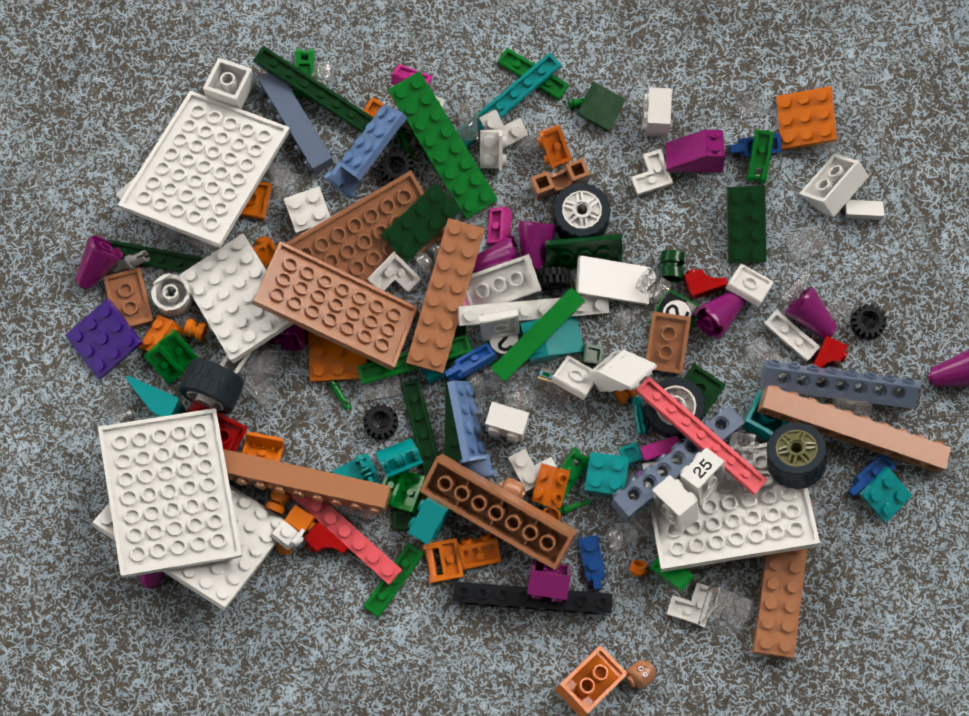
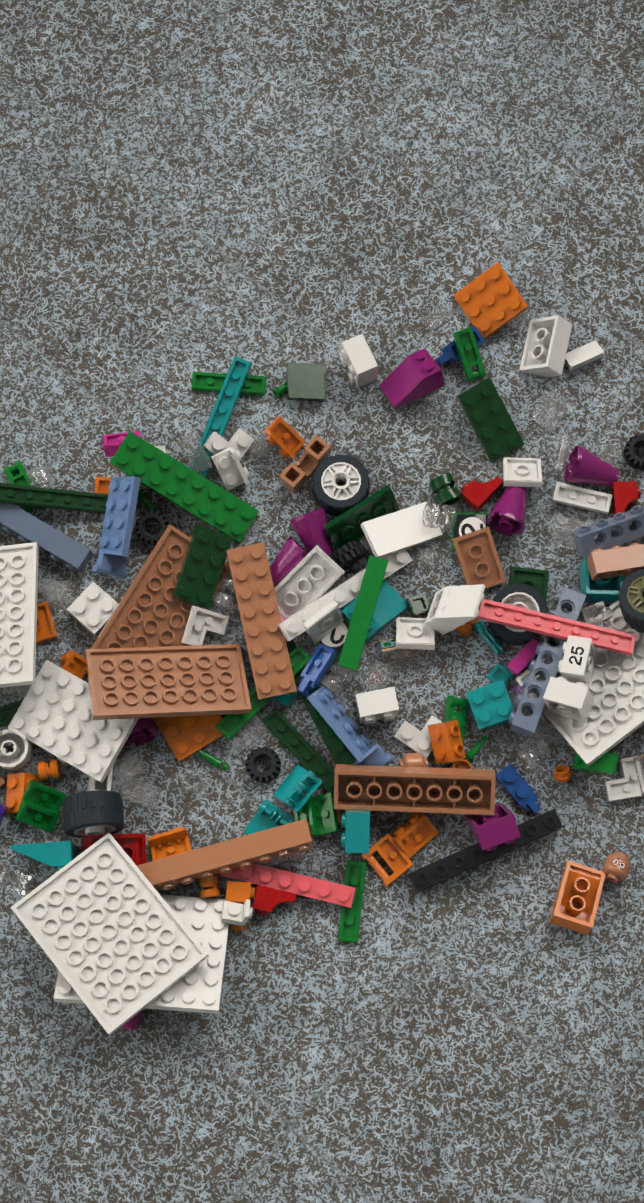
camera: 25 degrees left, 0 degrees up
(400, 520) = (330, 844): dark green tile -> none
(499, 224) = (272, 533): dark pink slope -> none
(655, 177) = (387, 417): white plate -> none

